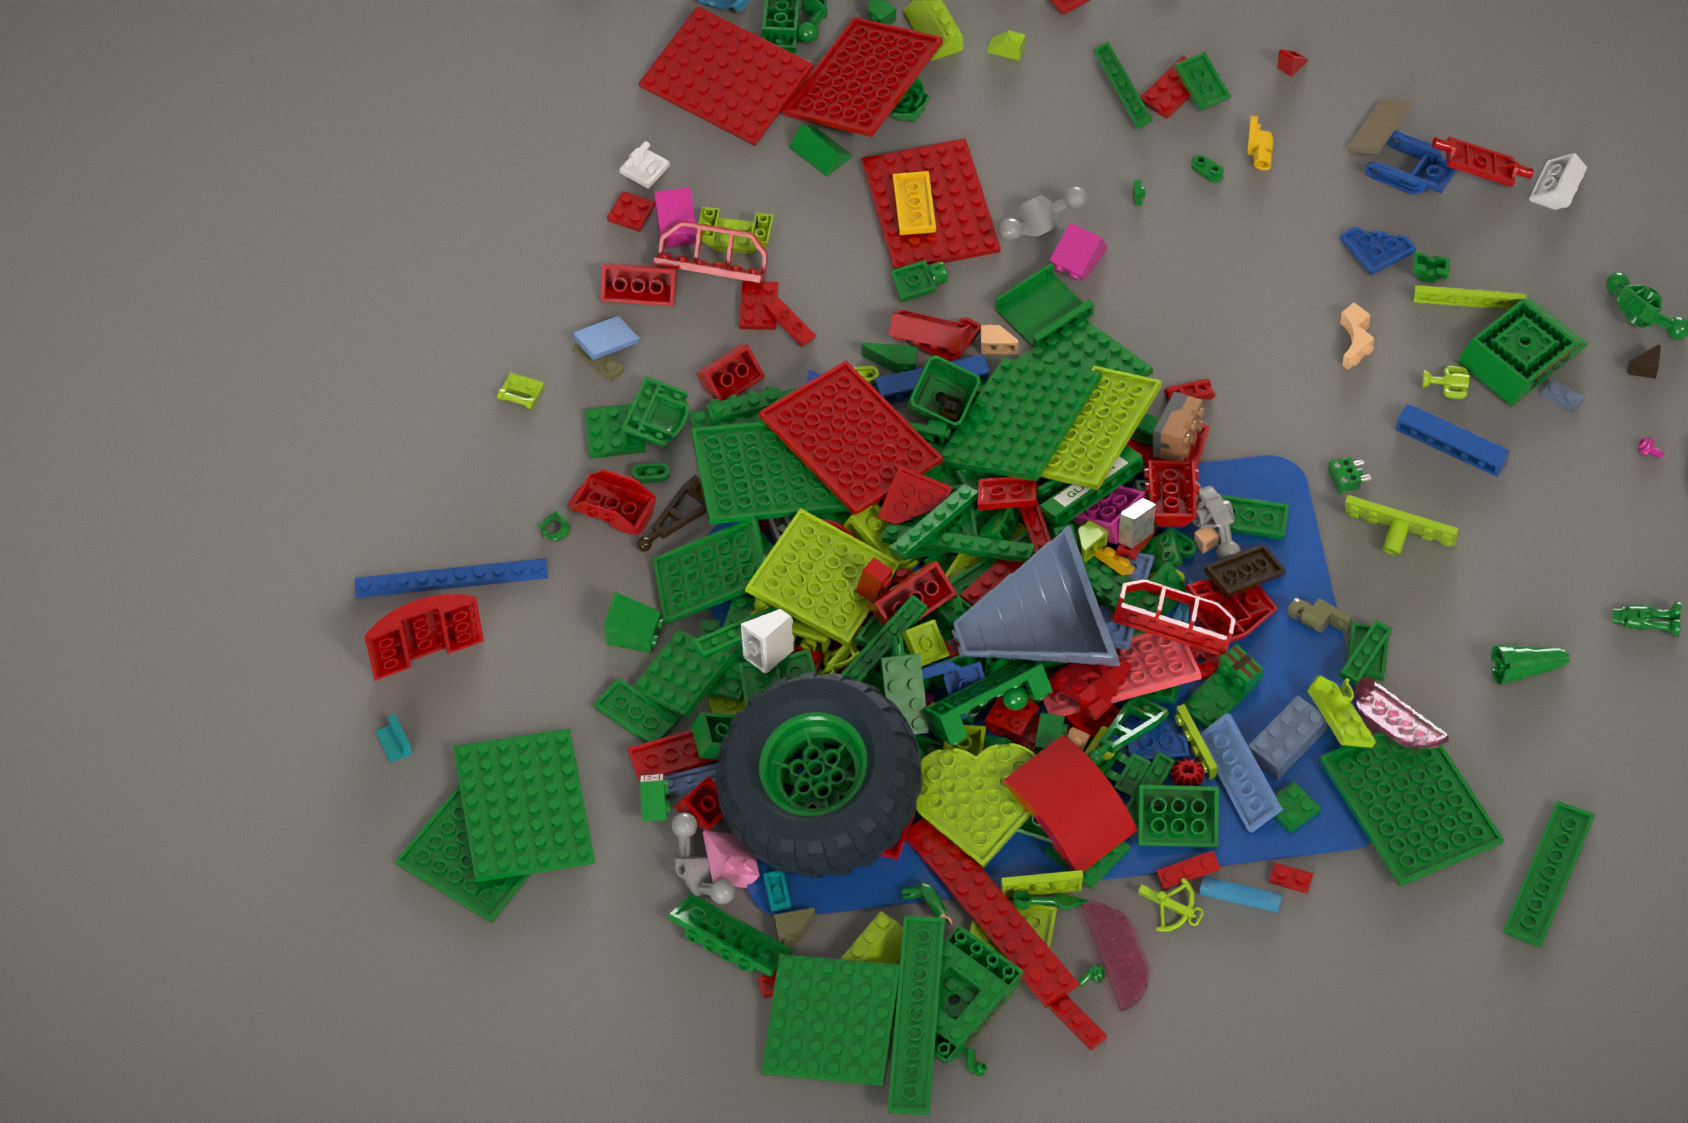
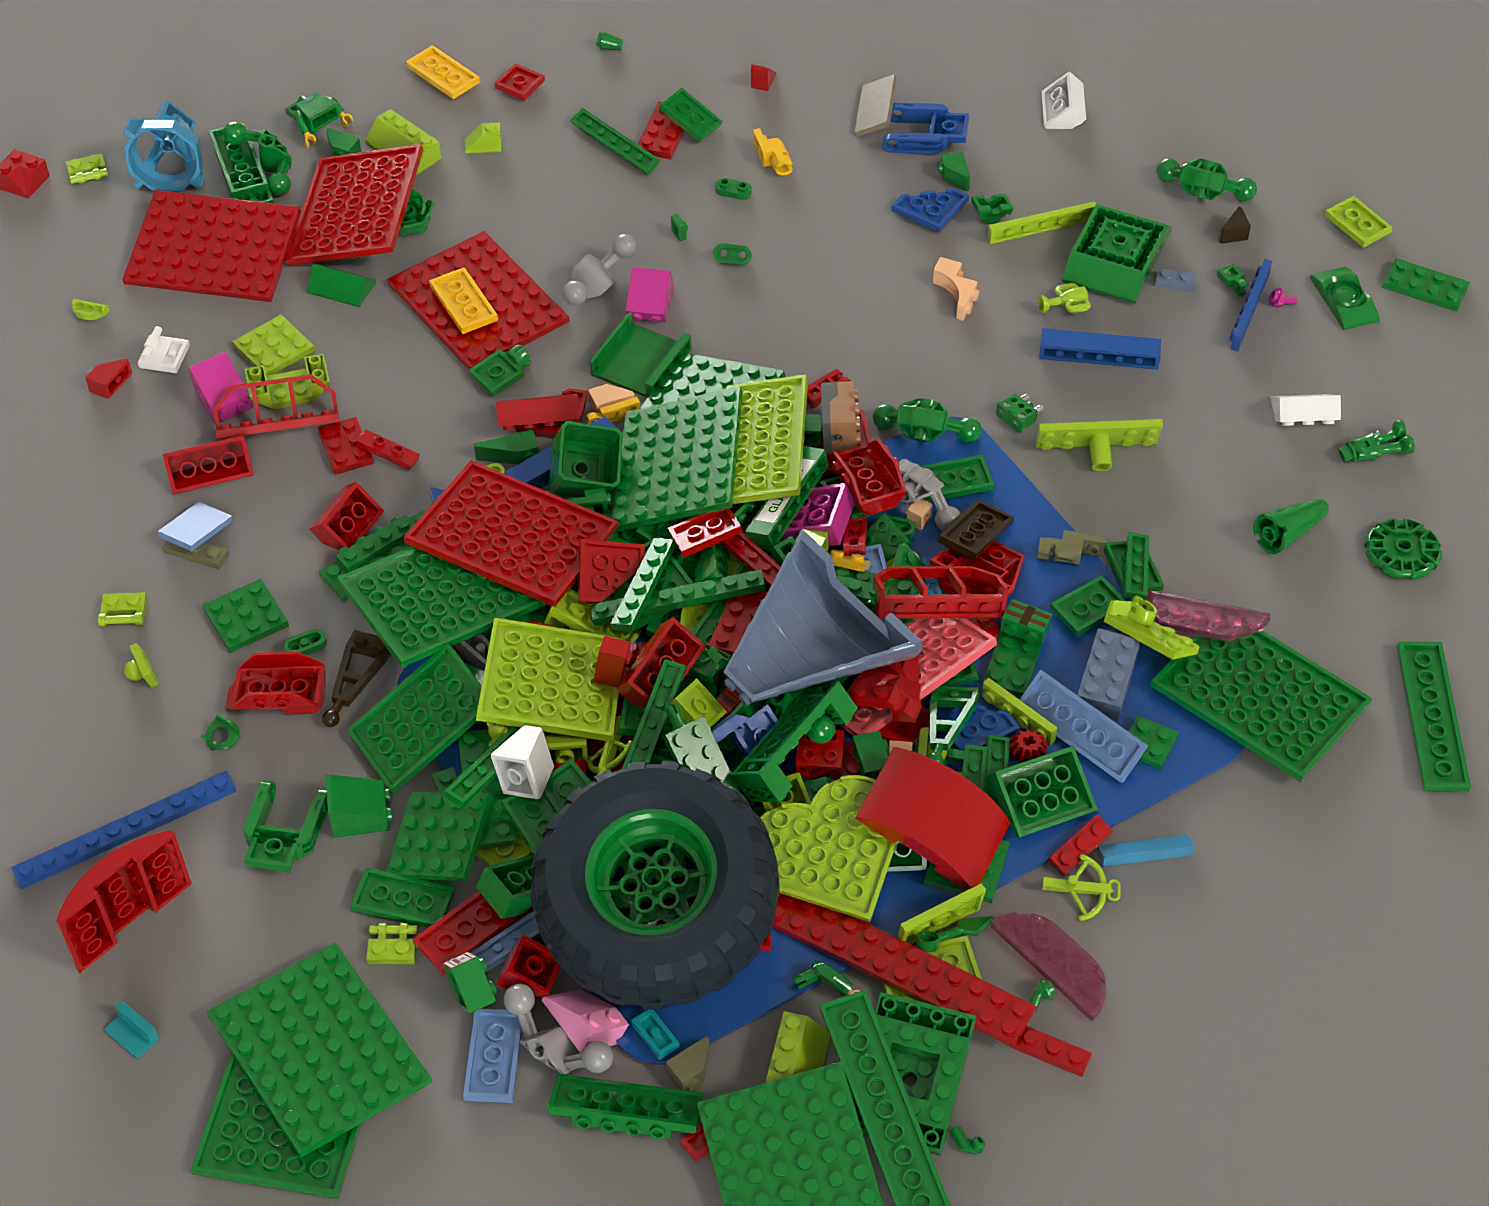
camera: 25 degrees left, 5 degrees down
(515, 446) = (140, 667): none -> lime tile
(557, 635) = (276, 846): none -> green plate
(590, 174) = (108, 377): none -> red slope
(599, 104) = (89, 310): none -> lime plate
(609, 750) = (391, 950): none -> lime plate
(631, 211) = (167, 399): red plate -> none
(648, 862) = (493, 1057): none -> medium blue plate
(657, 412) = (286, 580): green slope -> none
(739, 190) = (274, 345): none -> lime plate
(950, 407) = (597, 472): dark brown slope -> none
(994, 354) = (615, 412): none -> yellow plate
(1136, 523) = (852, 515): flat silver piece -> none
(1173, 235) = (732, 254): none -> green plate
(1255, 456) = (925, 421): none -> green piece
(1291, 878) = (1185, 814): red plate -> none
(1299, 671) = (1086, 605): none -> green plate
(1417, 217) = (955, 170): none -> green slope
(1481, 161) = (988, 105): red plate -> none
(1605, 561) = (1306, 408): none -> white slope
(1615, 730) = (1403, 533): none -> green plate
(1616, 411) = (1233, 276): none -> green plate
(1618, 442) = (1248, 309): none -> blue plate

